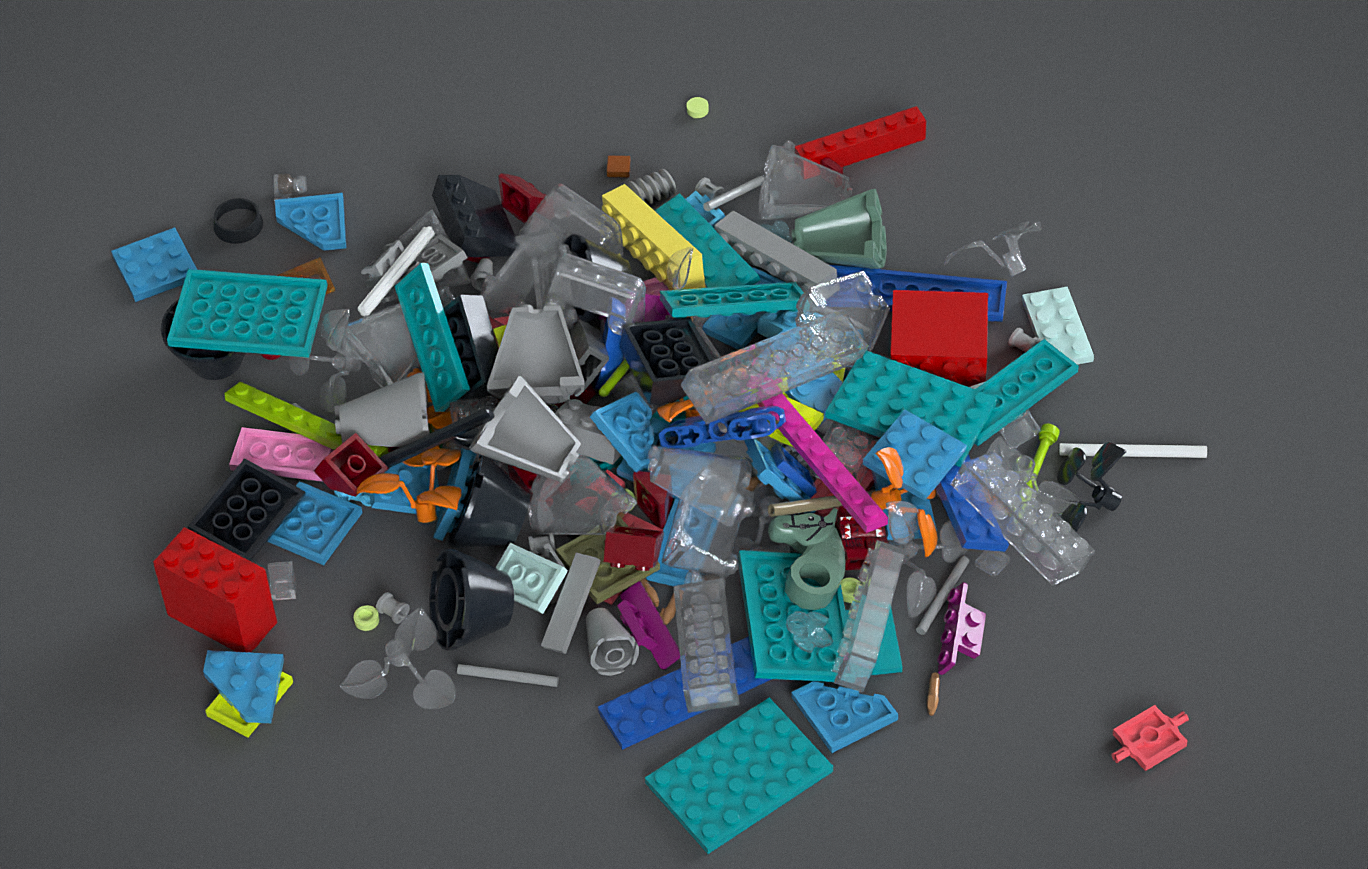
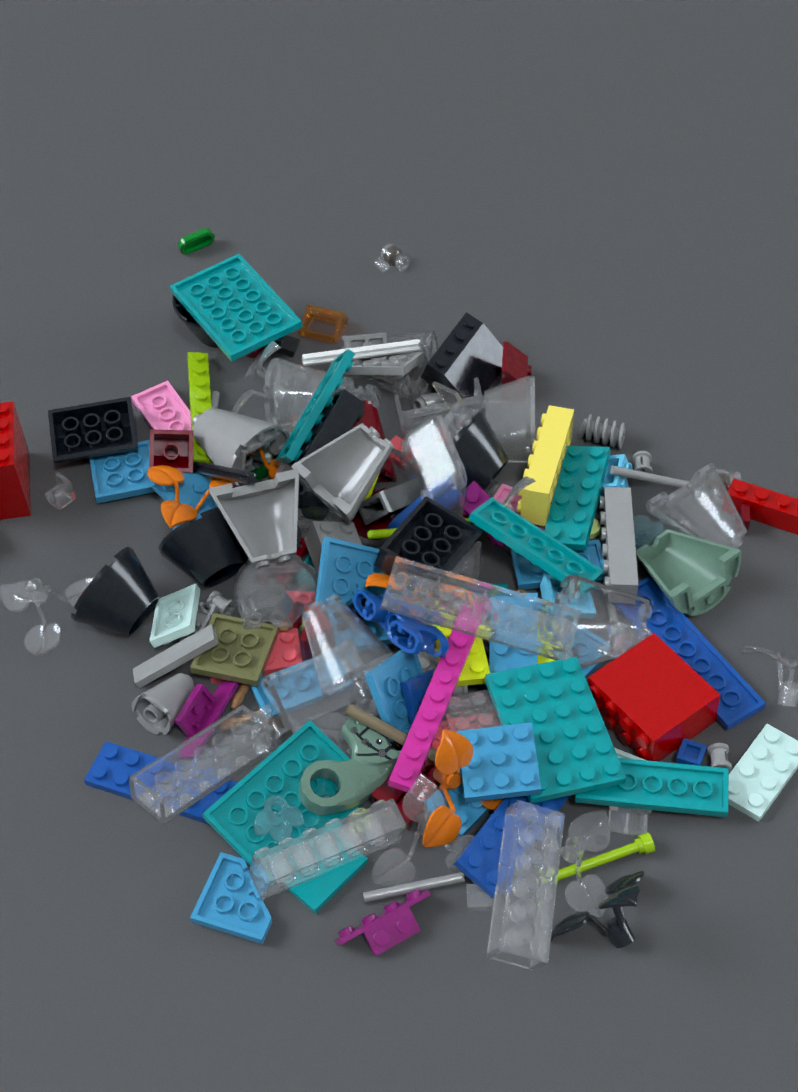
camera: 50 degrees right, 0 degrees up
(86, 303) = (196, 241): none -> green tile
(153, 264) = (266, 247): dark azure plate -> none
(238, 235) = (340, 269): black tyre -> none
(315, 219) = (382, 290): dark azure plate -> none
(366, 618) = (73, 557): yellowish green tile -> none
(392, 607) = (90, 563): light grey bush -> none
(508, 675) = (91, 669): light grey bar -> none
(618, 166) = (608, 402): dark orange tile -> none
(632, 547) = (250, 652): dark red slope -> none
(697, 107) = (714, 403): yellowish green tile -> none
(738, 775) = (120, 875): teal plate -> none
(869, 318) = (620, 640): none -> clear panel
(932, 698) = (304, 954): medium nougat piece -> none
(1002, 354) = (691, 753): none -> blue plate
(1179, 451) = (695, 918): white piece -> none

